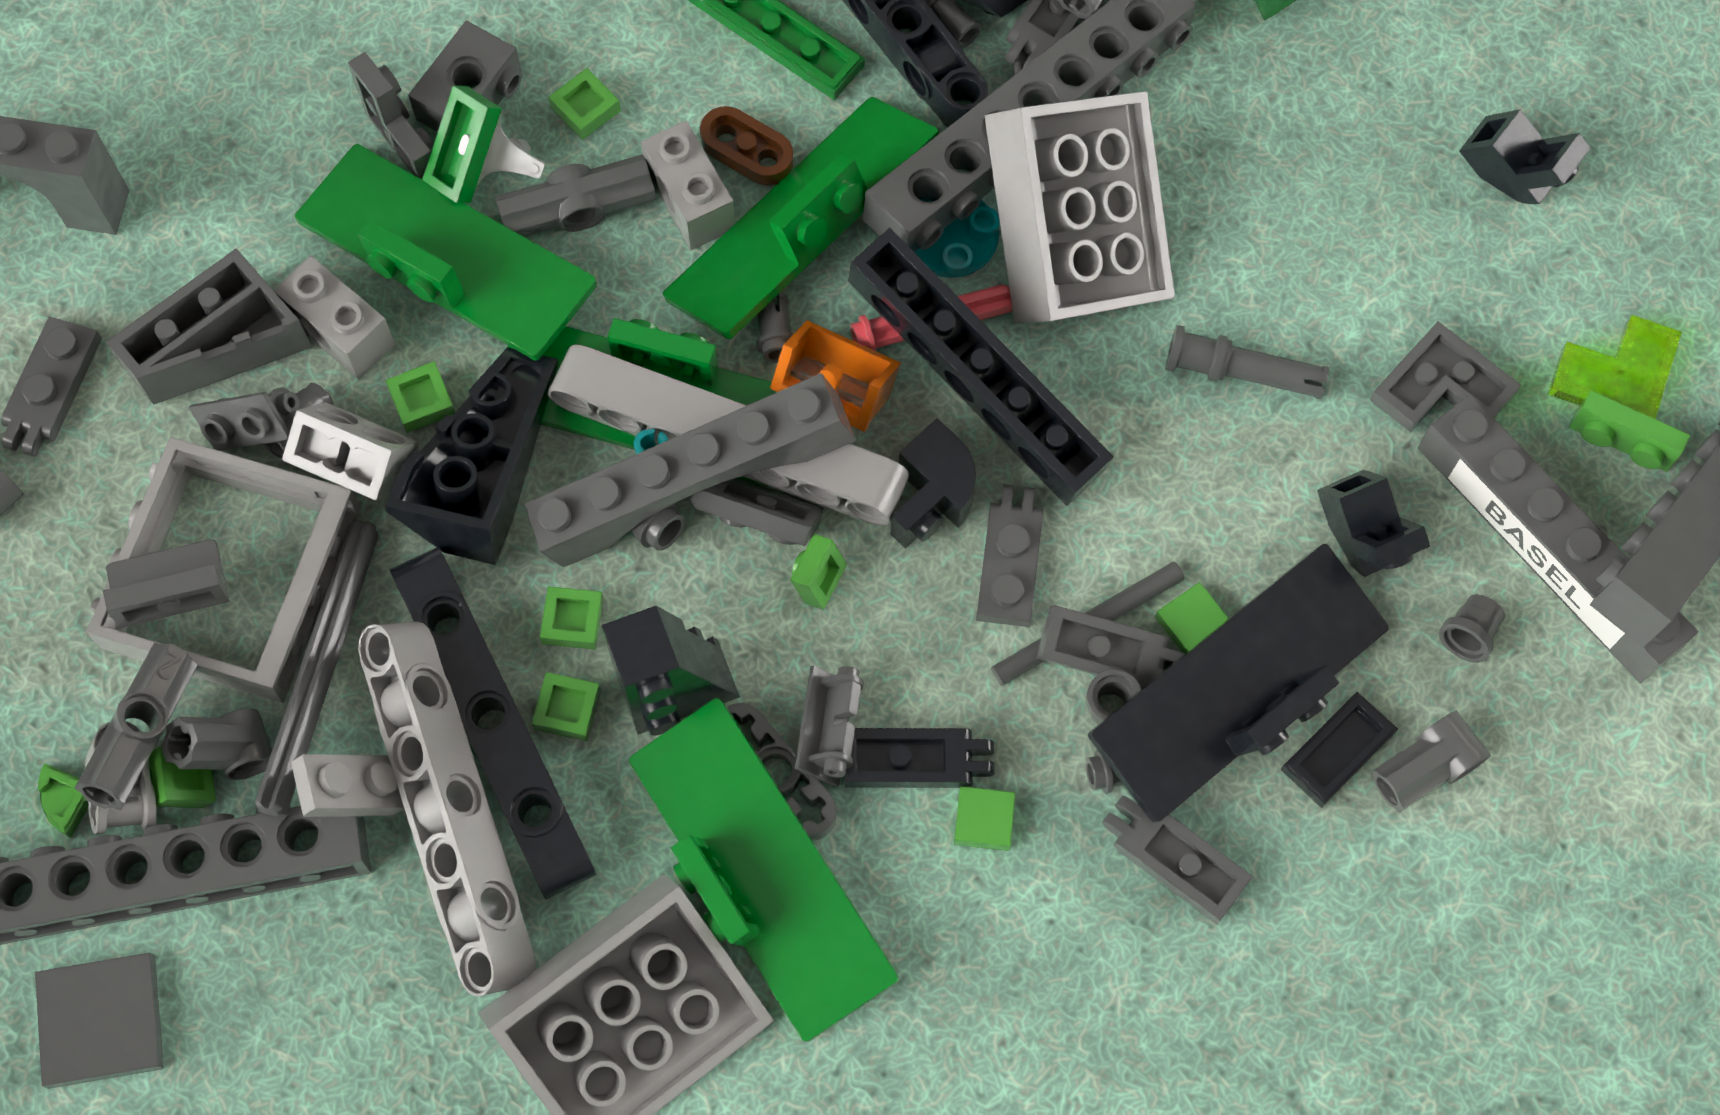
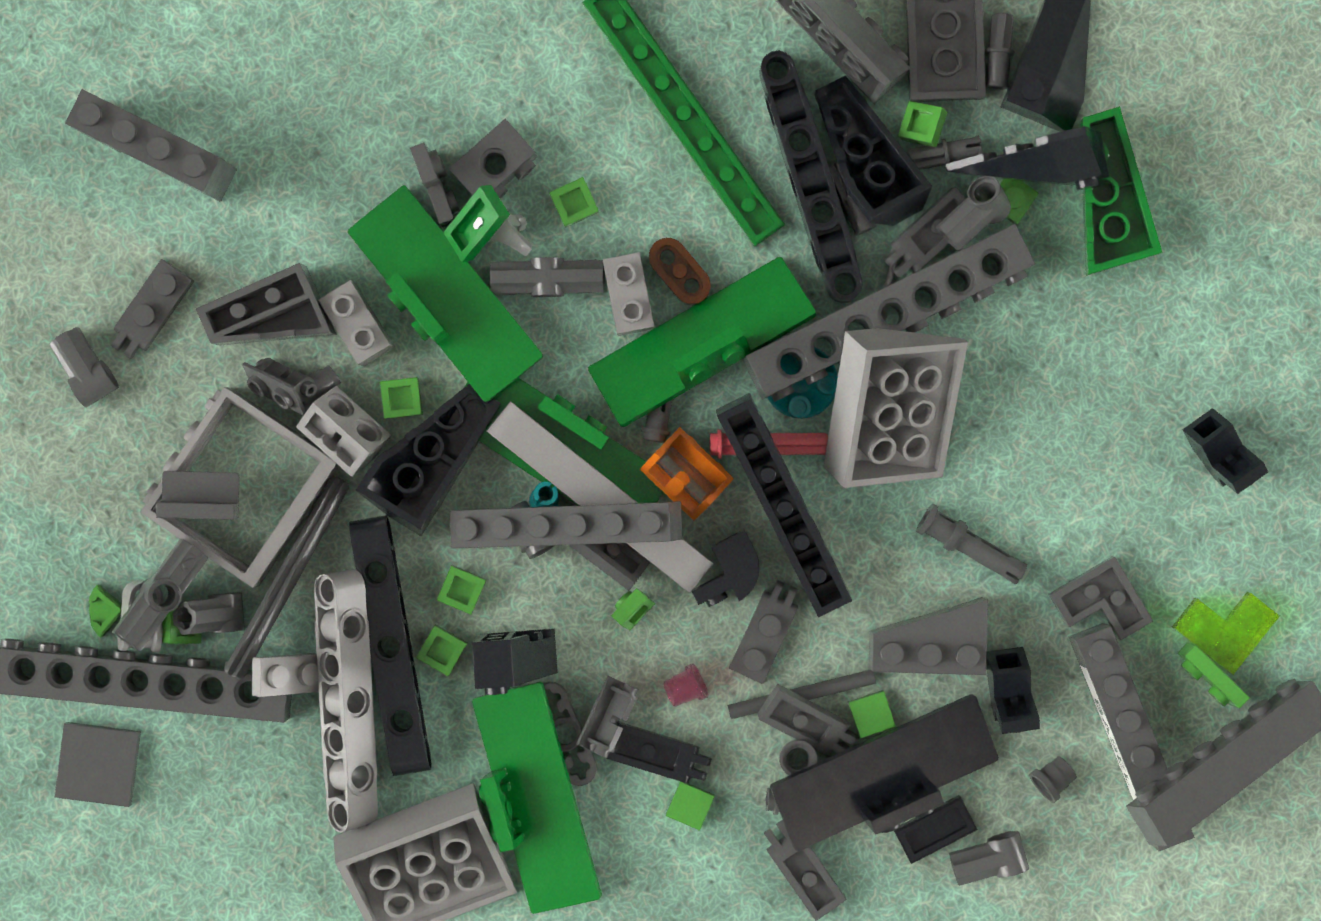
camera: 20 degrees right, 20 degrees up
(925, 654) = (686, 686): none -> clear pink piece
(1243, 495) = (934, 643): none -> dark grey wedge

